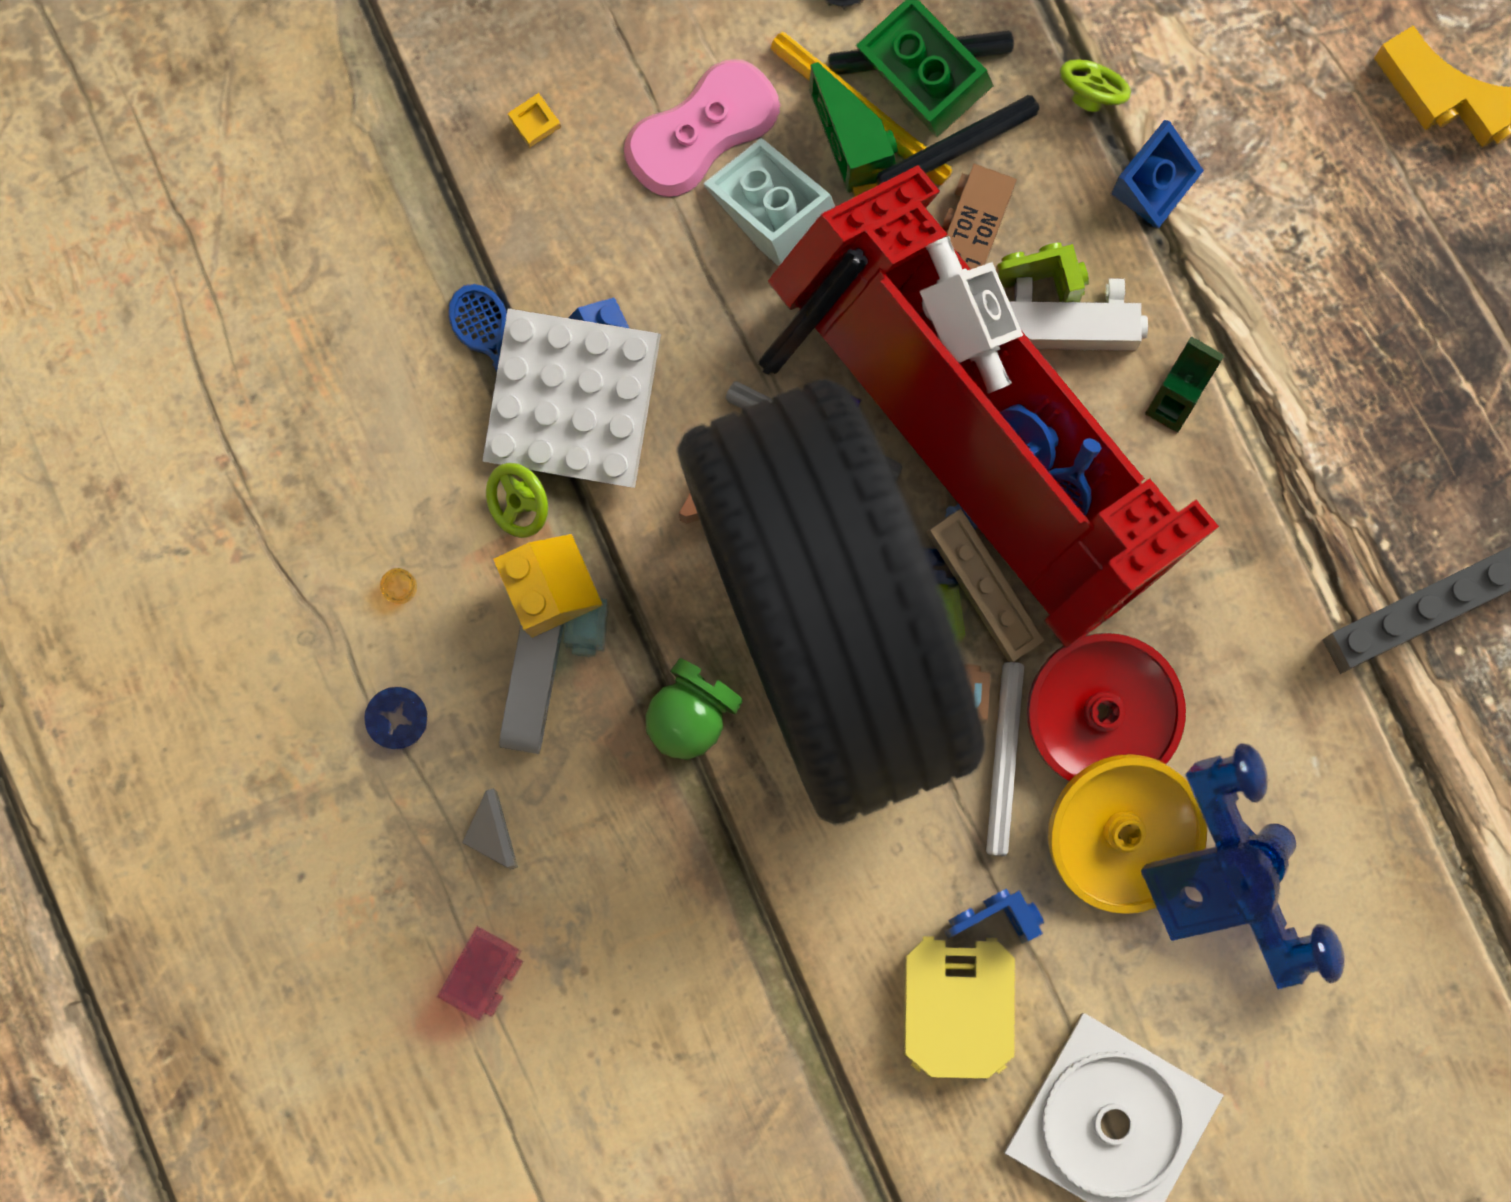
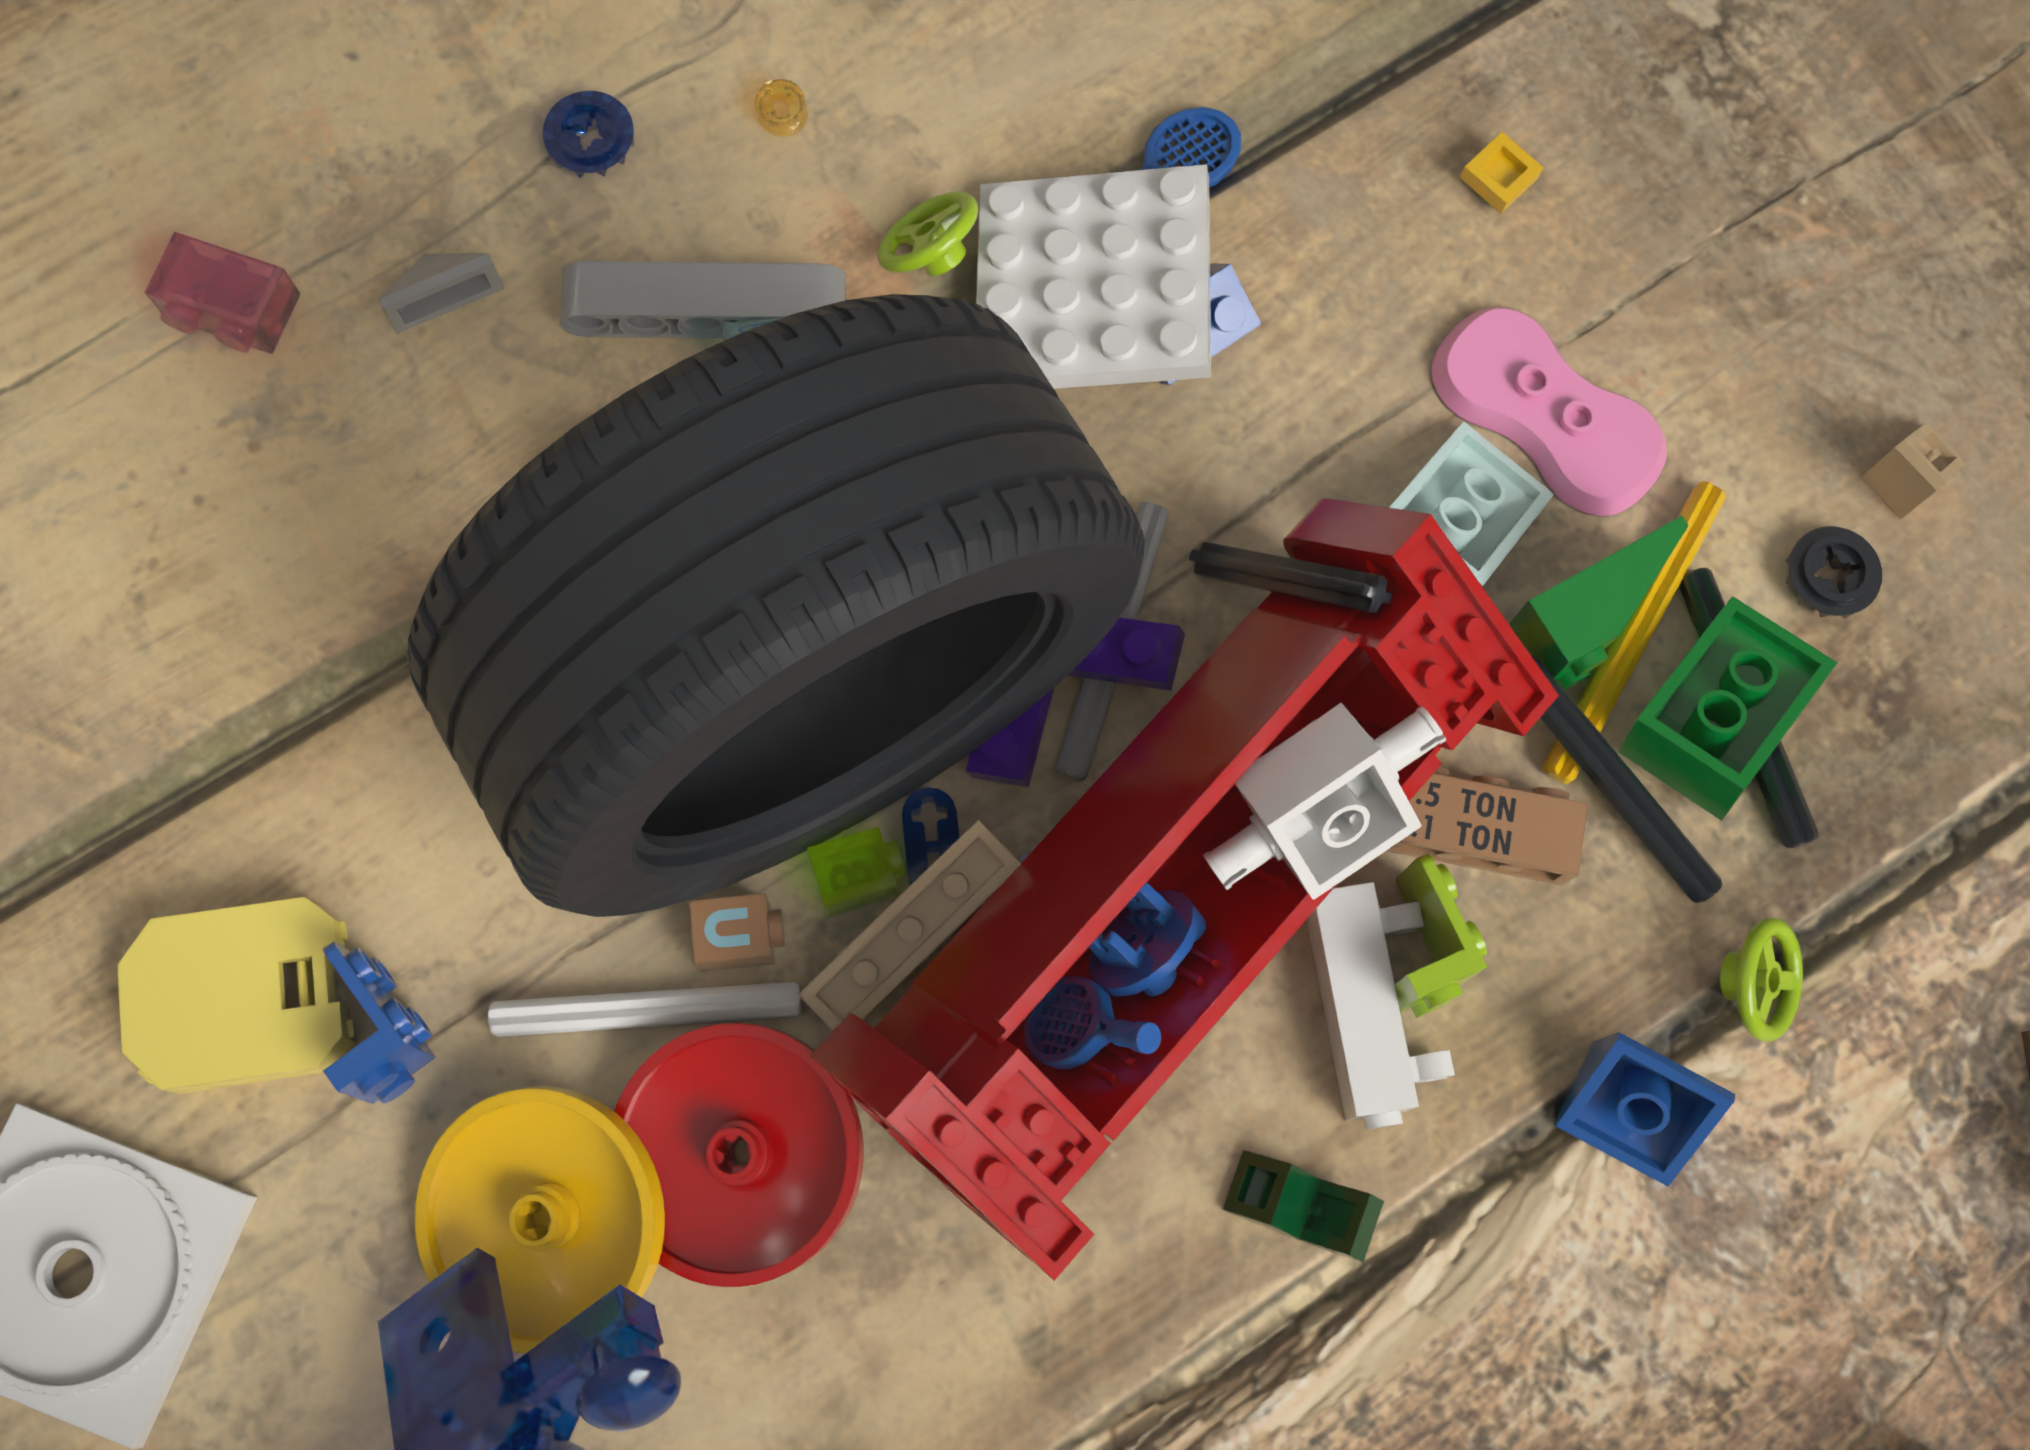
camera: 75 degrees right, 5 degrees down
(547, 583) = (795, 260): yellow slope -> none

